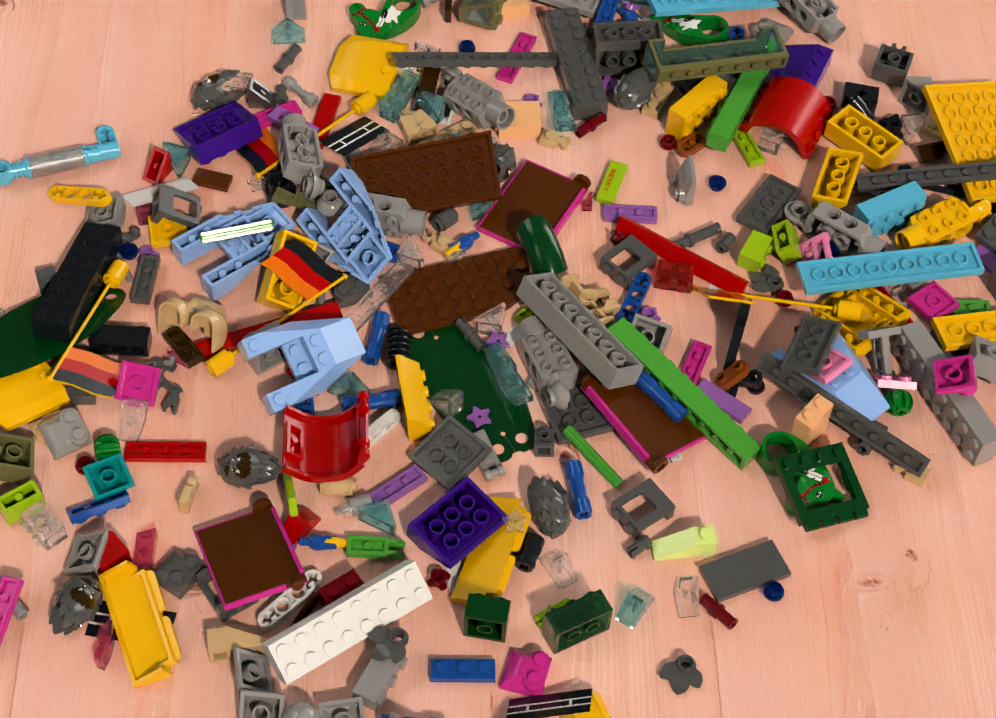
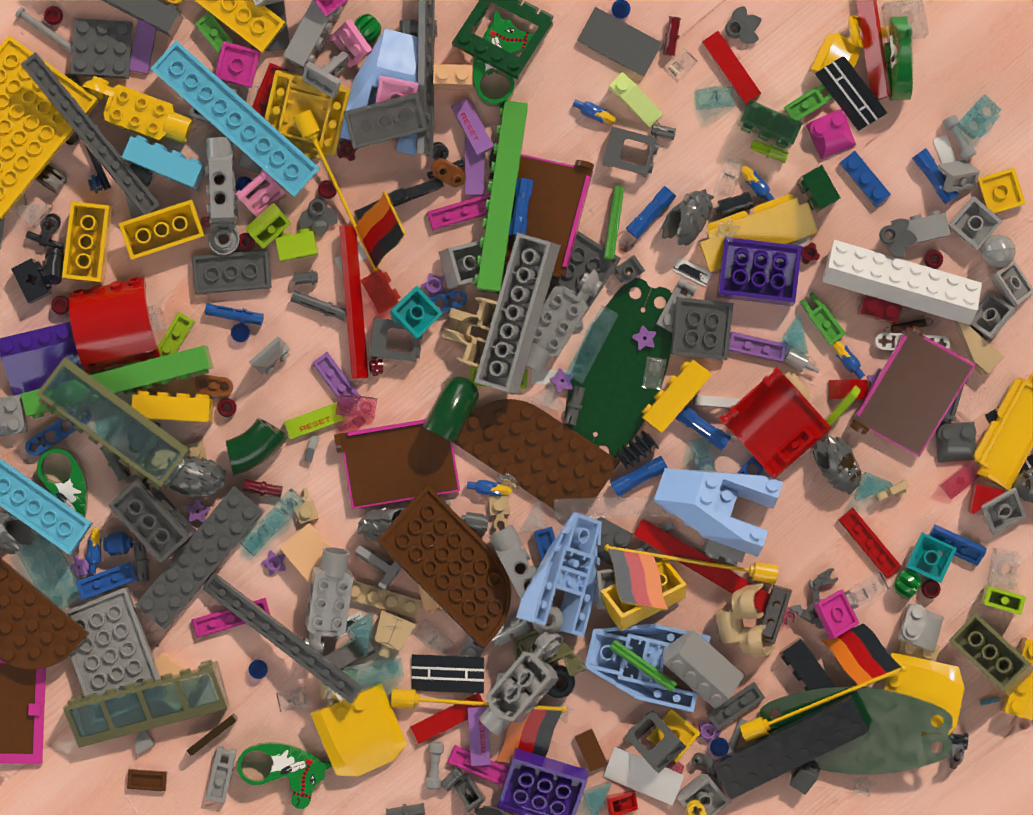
camera: 125 degrees left, 35 degrees up
(194, 263) = (702, 668): none -> light grey slope
(207, 483) = (870, 485): none -> clear light blue slope
(340, 665) = (939, 257): none -> dark red plate
(503, 487) = (692, 271): none -> sticker
(532, 583) = (757, 184): none -> blue piece
(569, 669) = (807, 103): none -> bright green hinge
(592, 167) = (311, 448): none -> light grey tile
(602, 206) = (356, 405): none -> clear pink slope
(626, 132) = (254, 446): none -> dark green brick
(638, 276) = (415, 312): none -> teal slope
(652, 638) = (731, 67): none -> red tile
(698, 509) = (594, 112): none -> blue piece
(729, 191) = (234, 314): none -> blue pin
(756, 417) = (472, 127): none -> medium lavender tile

